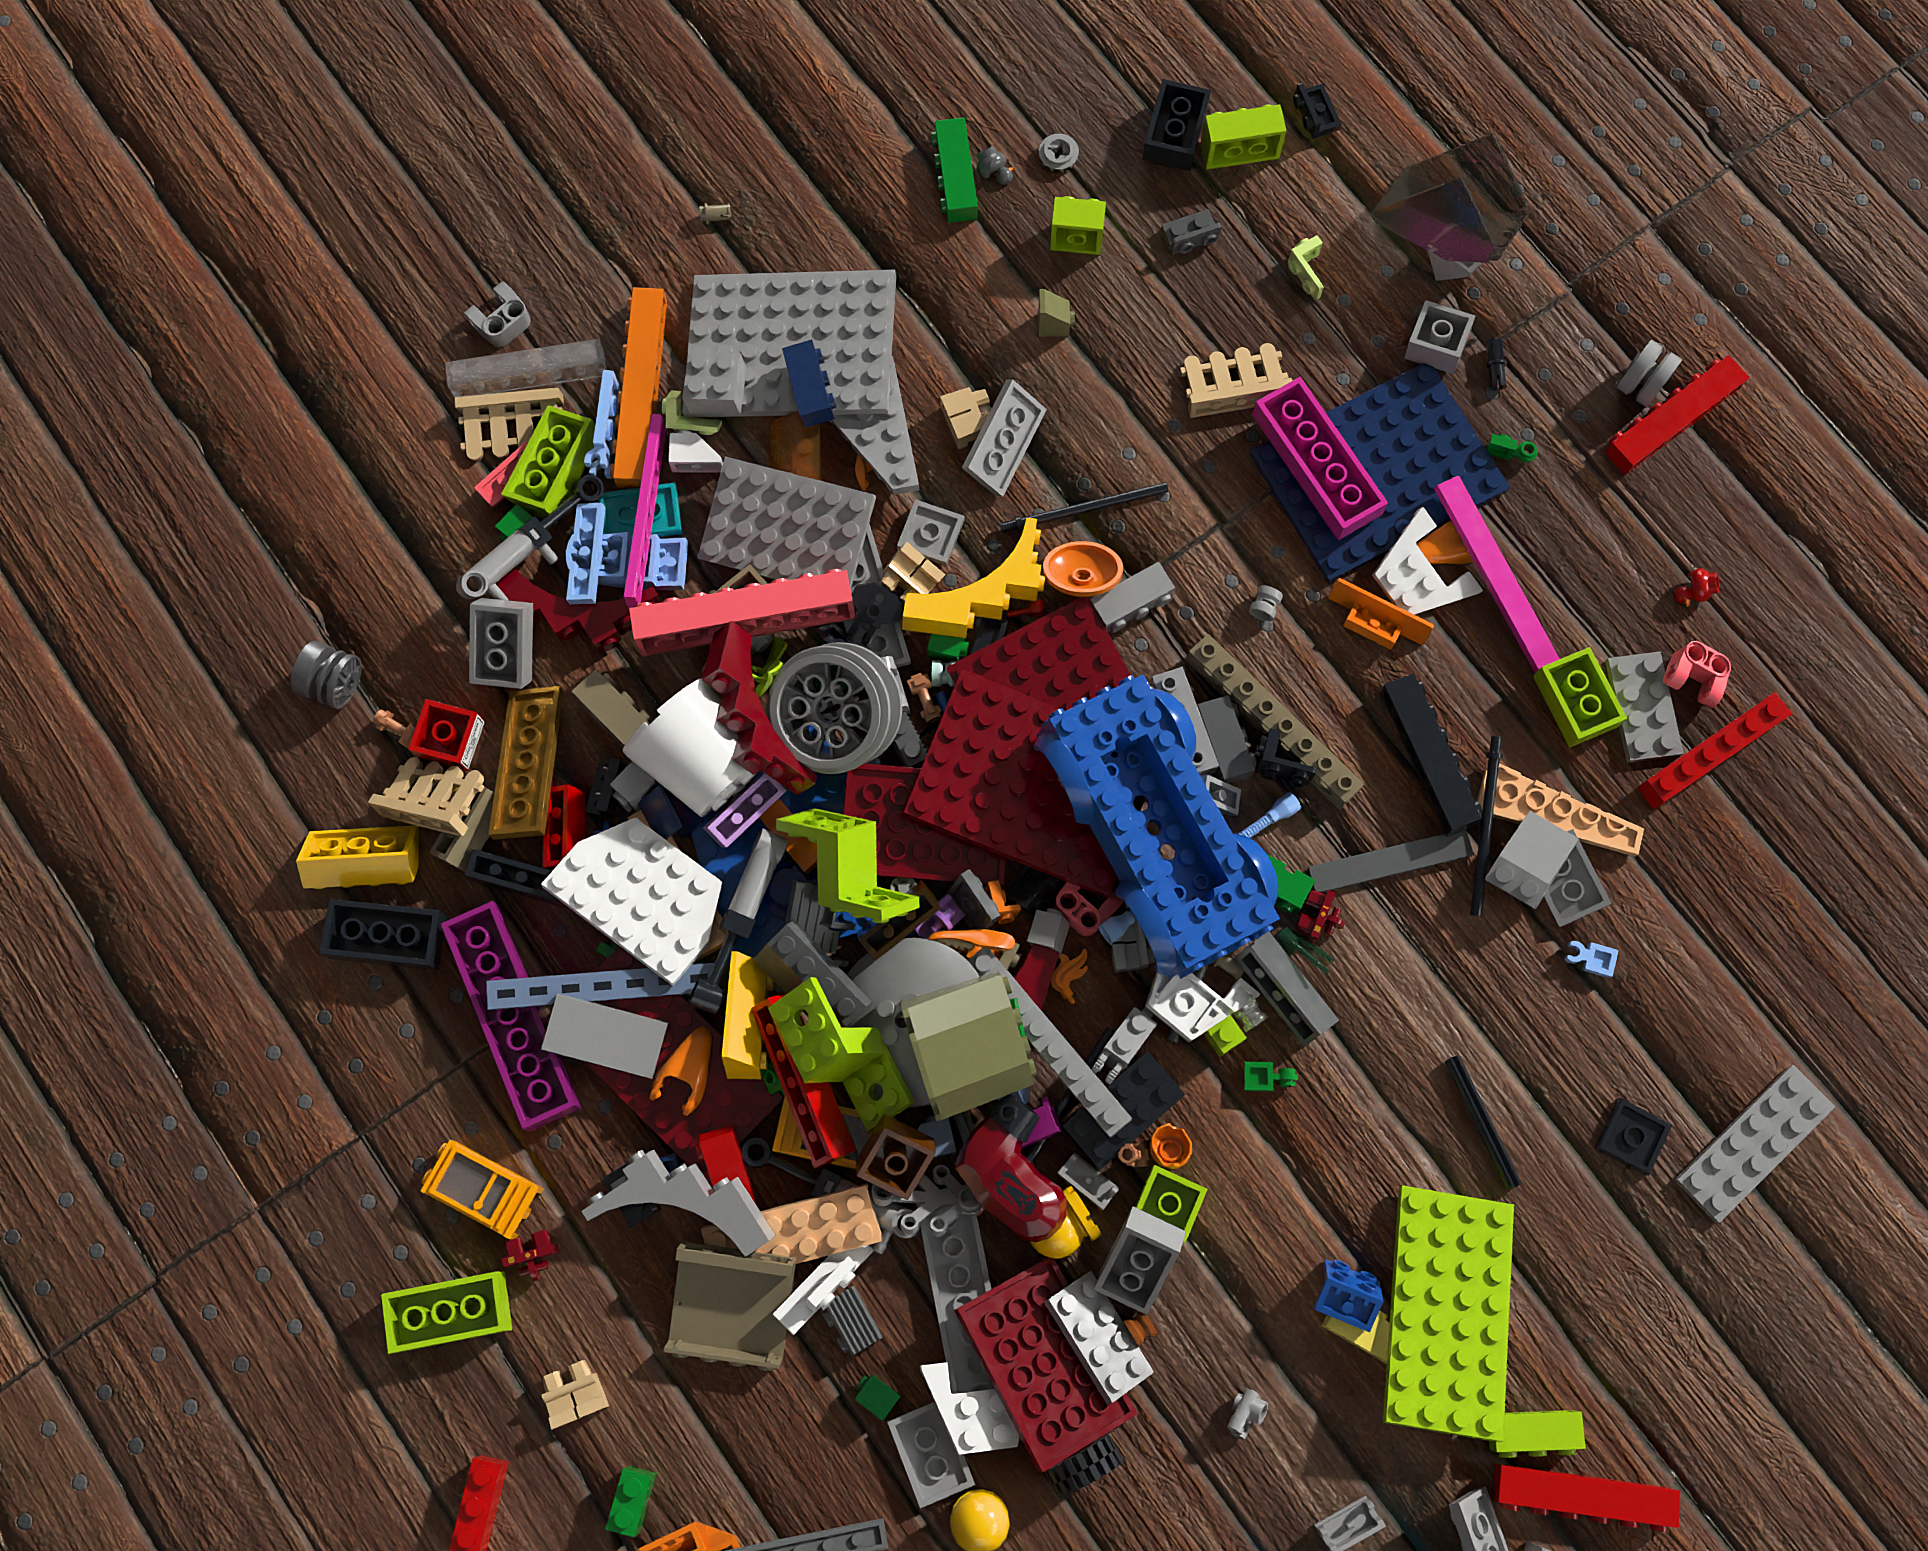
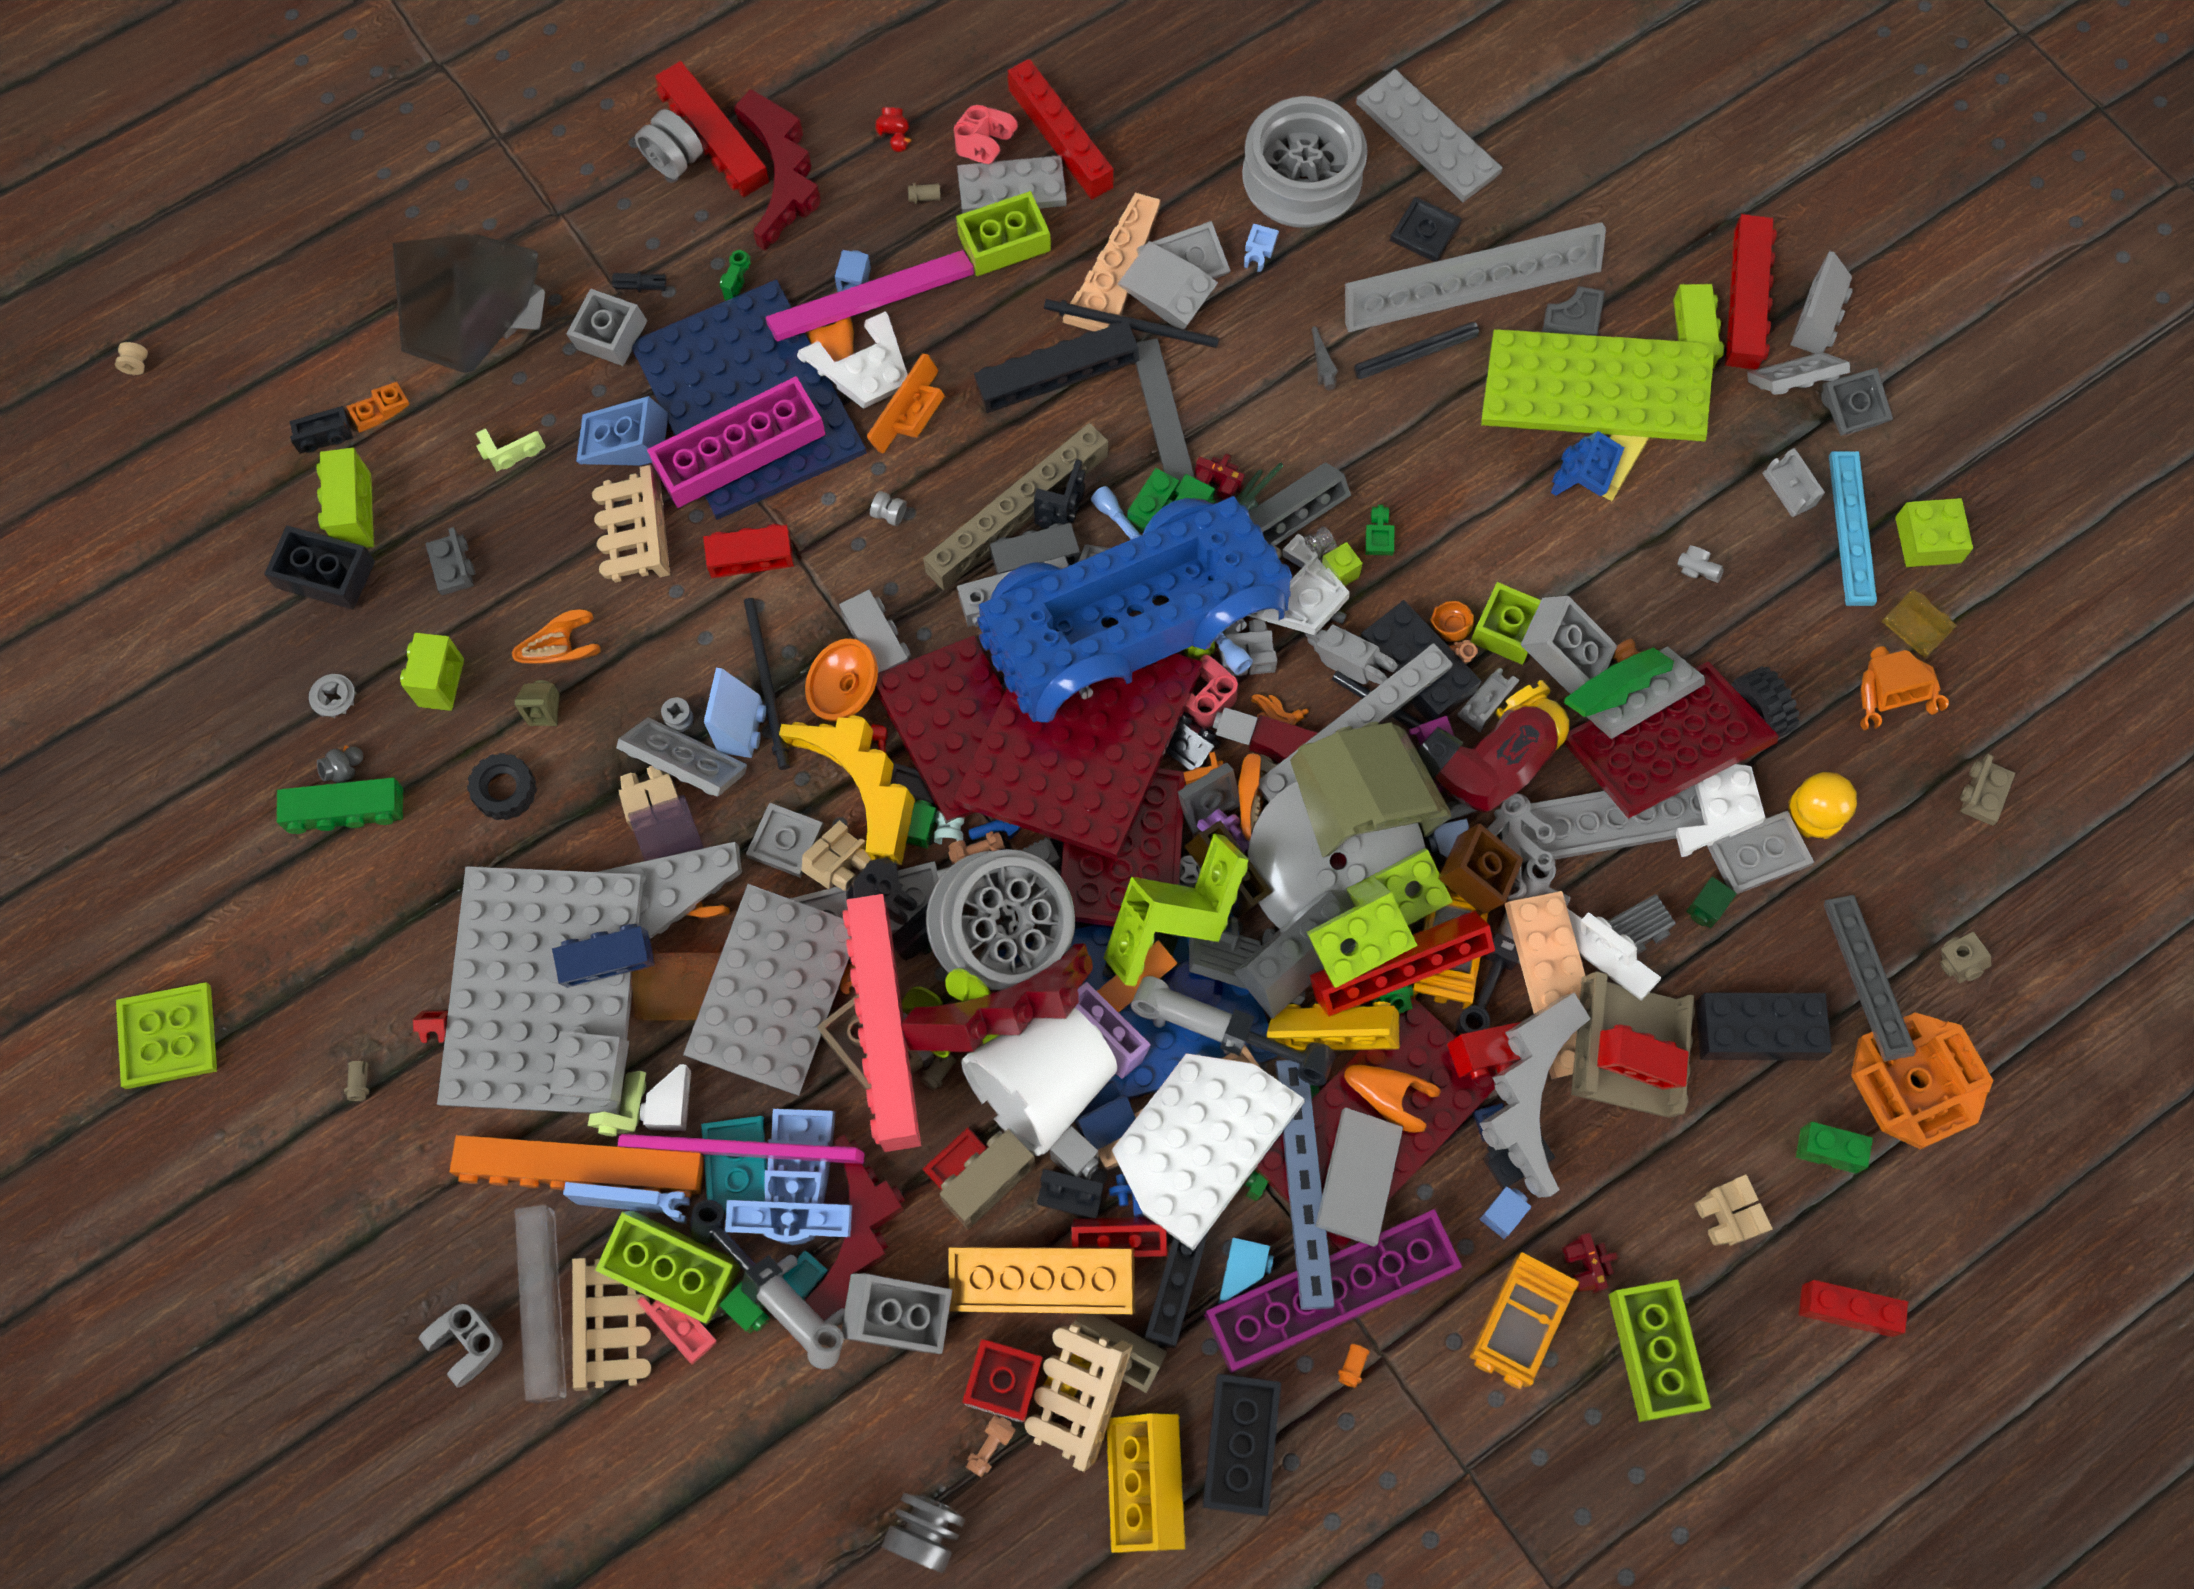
camera: 90 degrees left, 5 degrees down
(449, 1035) = (1353, 1366): none -> orange pin
(537, 939) = (1244, 1268): none -> medium azure slope
(541, 572) = (805, 1275): none -> teal tile
(579, 1177) = (1506, 1211): none -> medium blue brick
(641, 691) = (953, 1157): none -> red tile
(712, 1309) = (1642, 1057): none -> red brick
(750, 1440) = (1763, 1026): none -> black brick
(755, 67) = (166, 1035): none -> lime plate
(762, 261) = (431, 1021): none -> red tile
(934, 431) = (665, 829): none -> clear purple tile
(982, 277) = (496, 765): none -> black tyre
(1041, 475) = (734, 715): none -> light blue slope
(1047, 439) = (682, 719): none -> light grey wheel
(1101, 1309) = (1615, 683): none -> green slope
(1115, 323) = (553, 642): none -> orange animal
(1214, 481) = (748, 551): none -> red brick
(1287, 849) = (1152, 498): none -> green brick
(1329, 363) = (622, 433): none -> medium blue slope
(1344, 155) = (383, 405): none -> orange slope
(1450, 1025) = (1325, 366): none -> flat silver piece
(1525, 556) = (852, 270): none -> medium blue brick
(1540, 1299) = (1577, 315): none -> dark grey tile
(1573, 1186) = (1474, 277): none -> light grey plate
(1624, 620) = (924, 192): none -> dark tan pin
(1642, 489) = (792, 191): none -> dark red arch
(1714, 958) = (1274, 171): none -> light grey wheel

